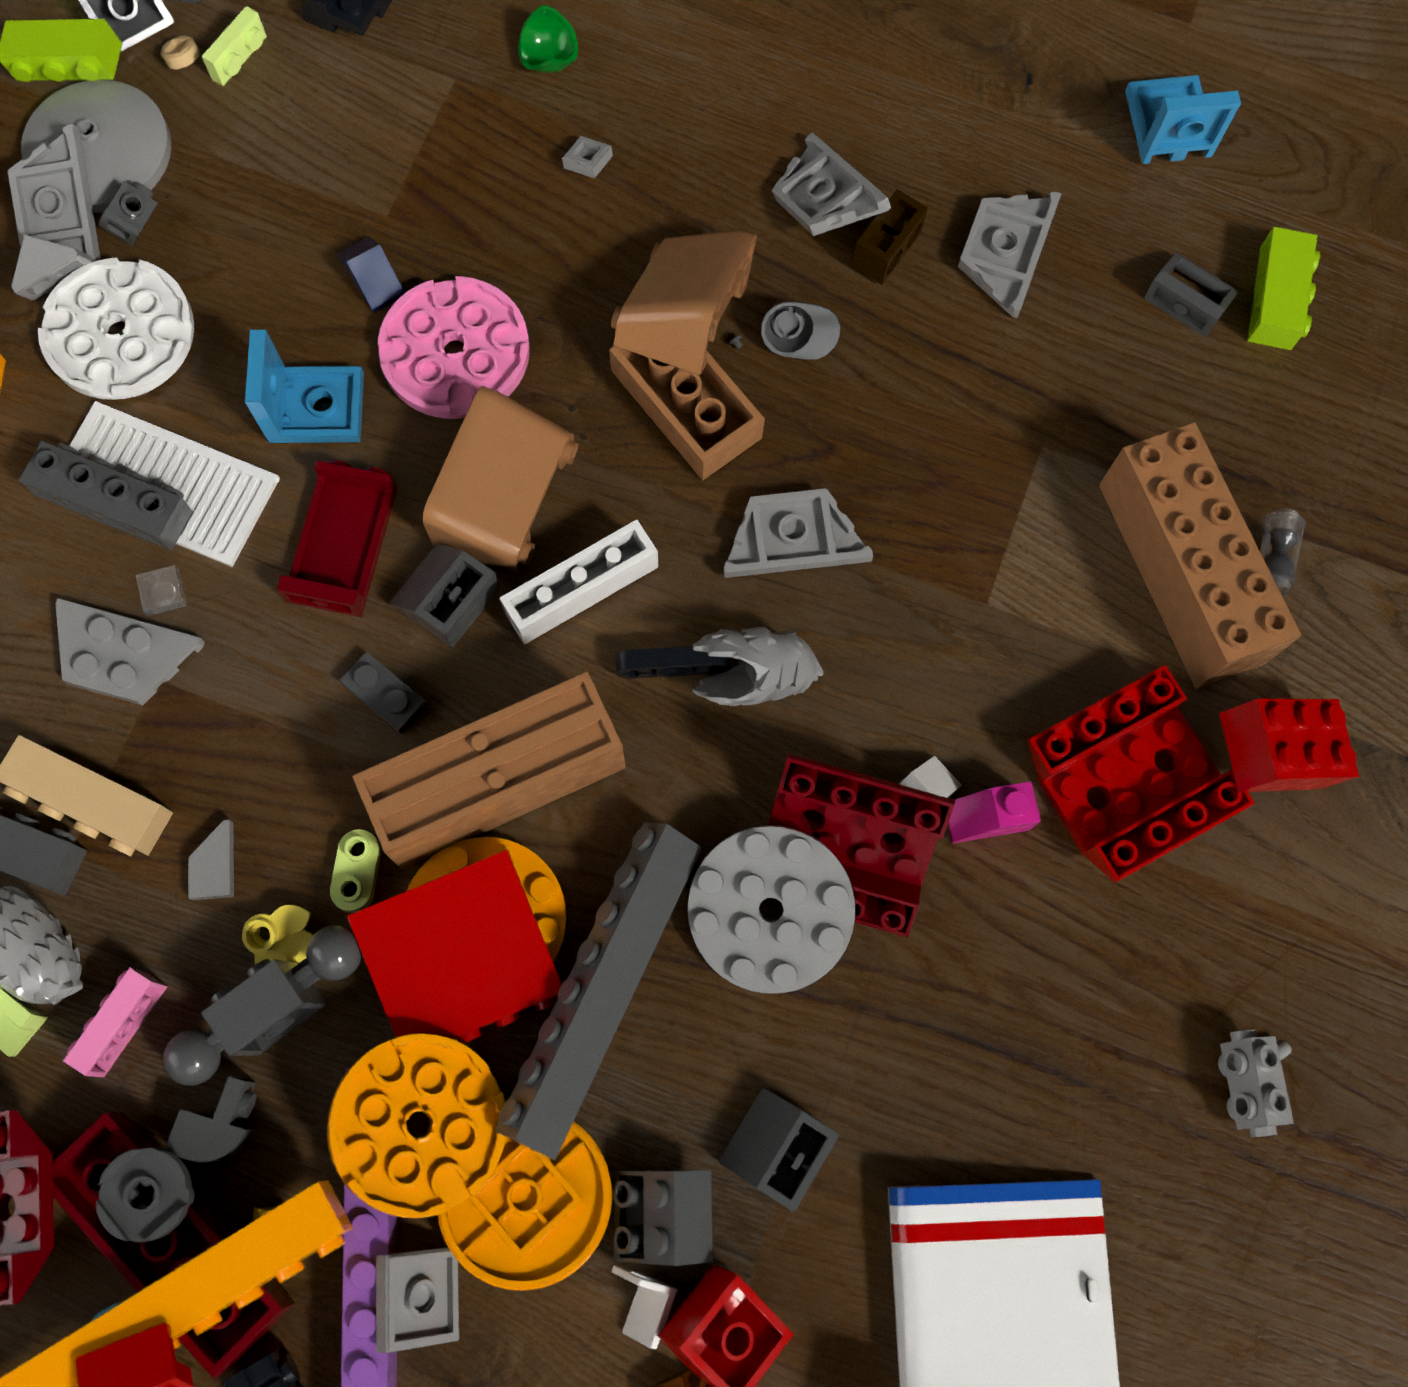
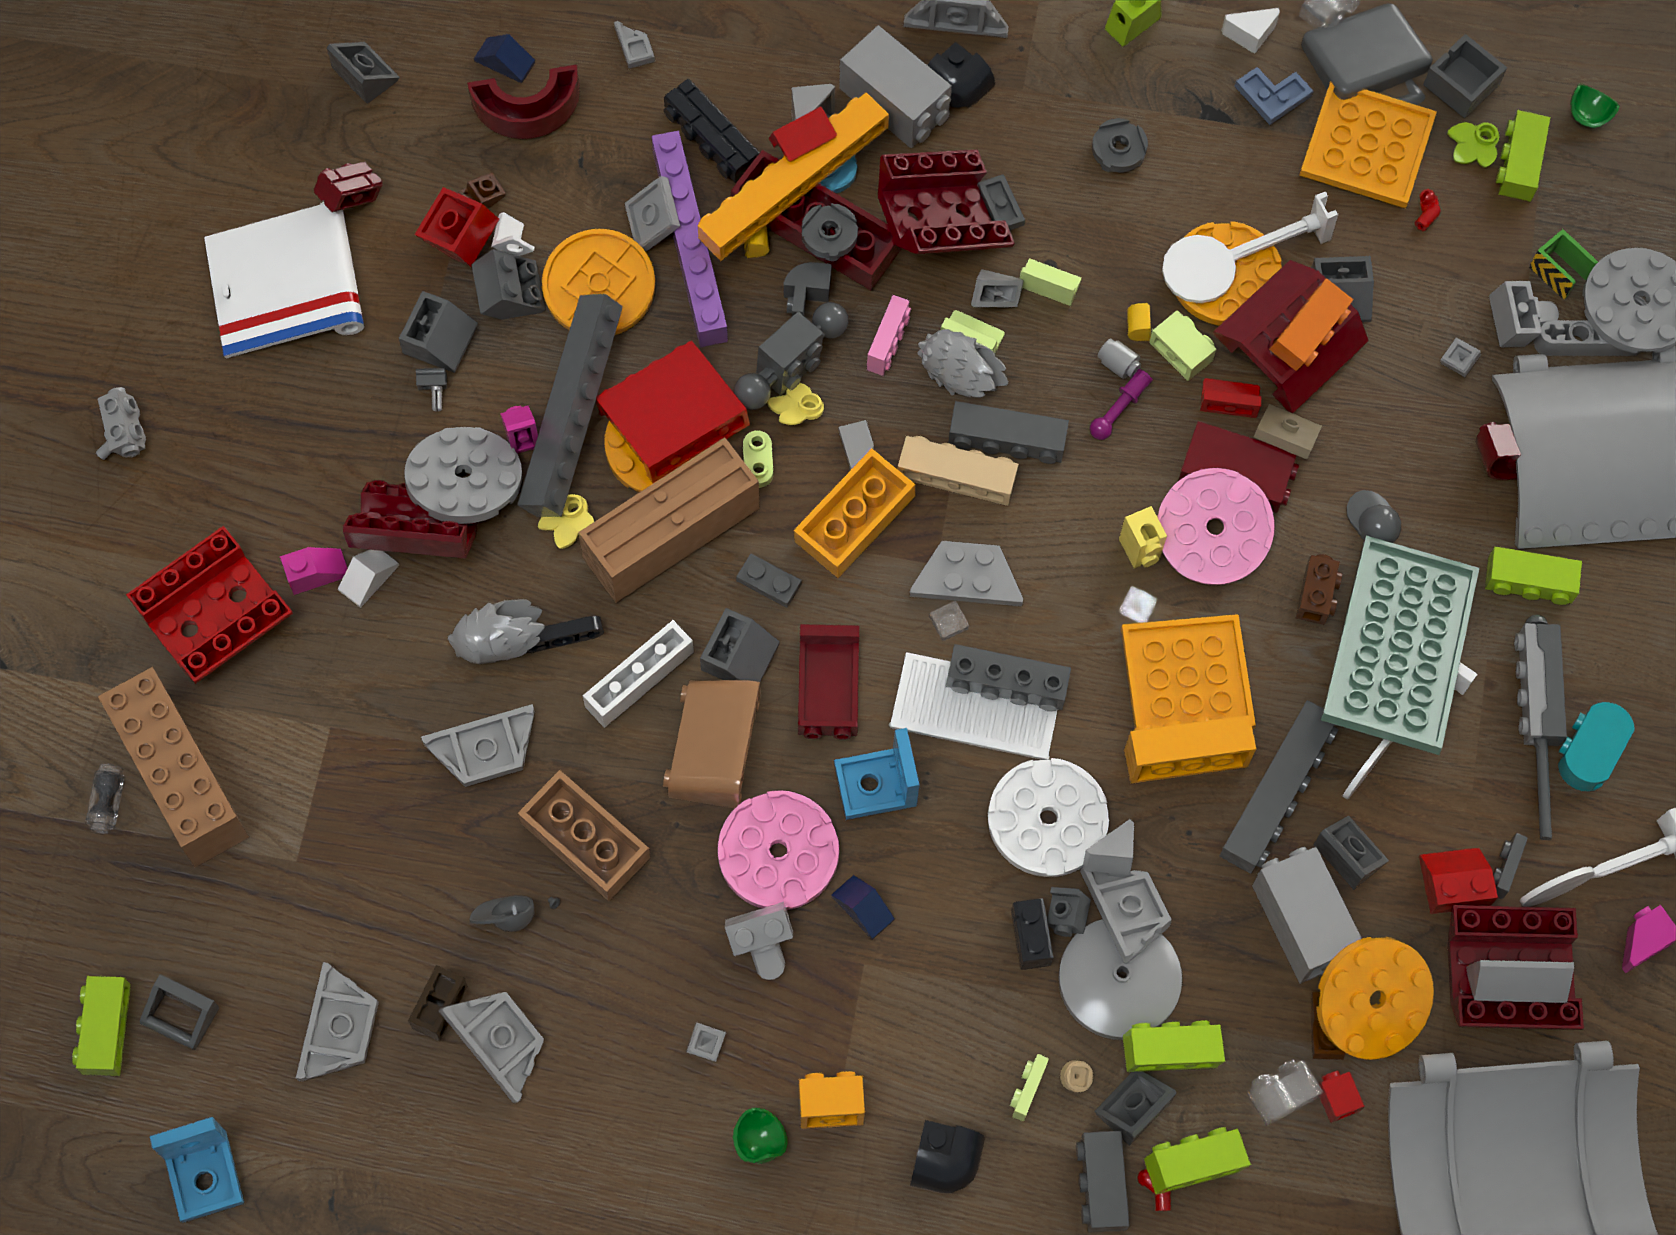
camera: 170 degrees right, 5 degrees down
(179, 197) = (1032, 934): none -> black brick
(239, 754) = (854, 513): none -> light orange brick
(371, 1134) = (693, 314): light orange plate -> none
(458, 54) = (831, 1100): none -> light orange brick
(497, 246) = (760, 934): none -> light grey brick
(629, 816) = (568, 526): none -> light yellow plate
(681, 969) = (520, 428): none -> dark pink slope
(684, 297) = (595, 903): medium nougat windscreen -> none
(792, 1076) = (435, 380): none -> dark grey piece
(1288, 744) = (101, 638): red brick -> none

